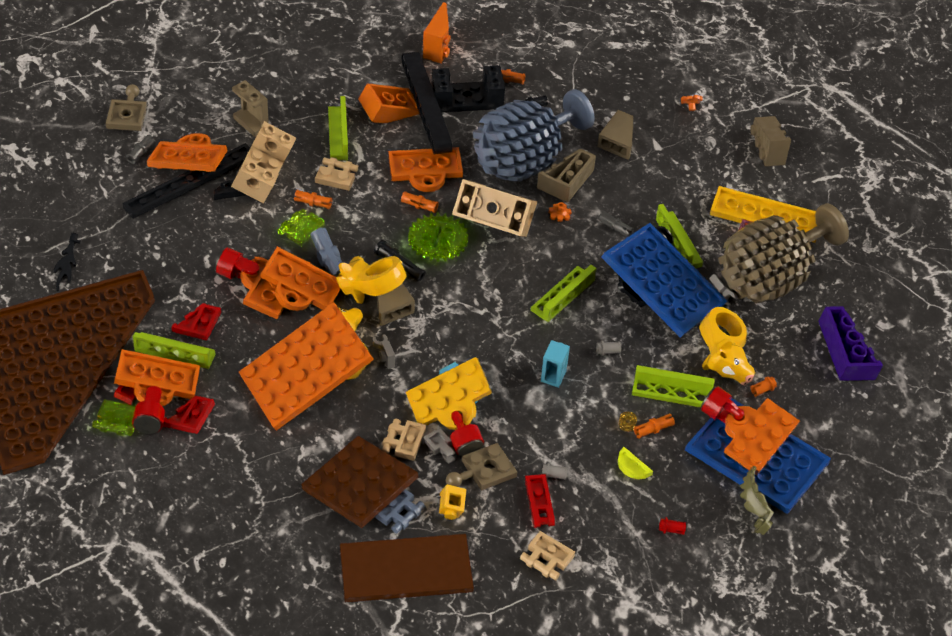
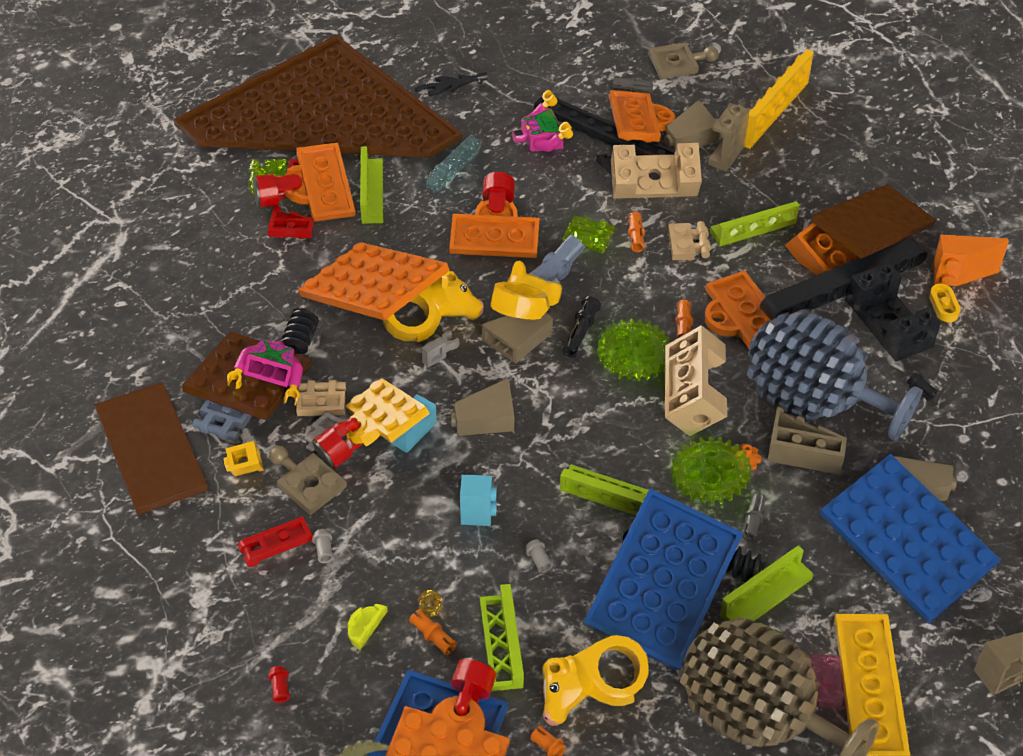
camera: 75 degrees right, 0 degrees up
(167, 219) = (541, 127): none -> torso
(175, 286) = (453, 164): none -> clear light blue beam
(199, 322) = (414, 195): red wing -> none
(213, 62) = (778, 97): none -> yellow plate
(216, 126) = (692, 126): none -> dark tan slope
(299, 280) = (497, 245): orange plate -> none
(327, 435) = (300, 330): none -> black piece
(374, 451) = (269, 363): none -> dark pink torso
(380, 64) = (873, 220): none -> reddish brown tile
(462, 336) = (485, 411): none -> dark tan slope
(466, 63) = (944, 303): none -> yellow plate
(511, 76) = (950, 347): orange pin -> none
(551, 551) = (205, 570): tan plate -> none
(569, 231) = (711, 470): none -> clear neon green gear
(665, 152) = (910, 538): none -> blue plate

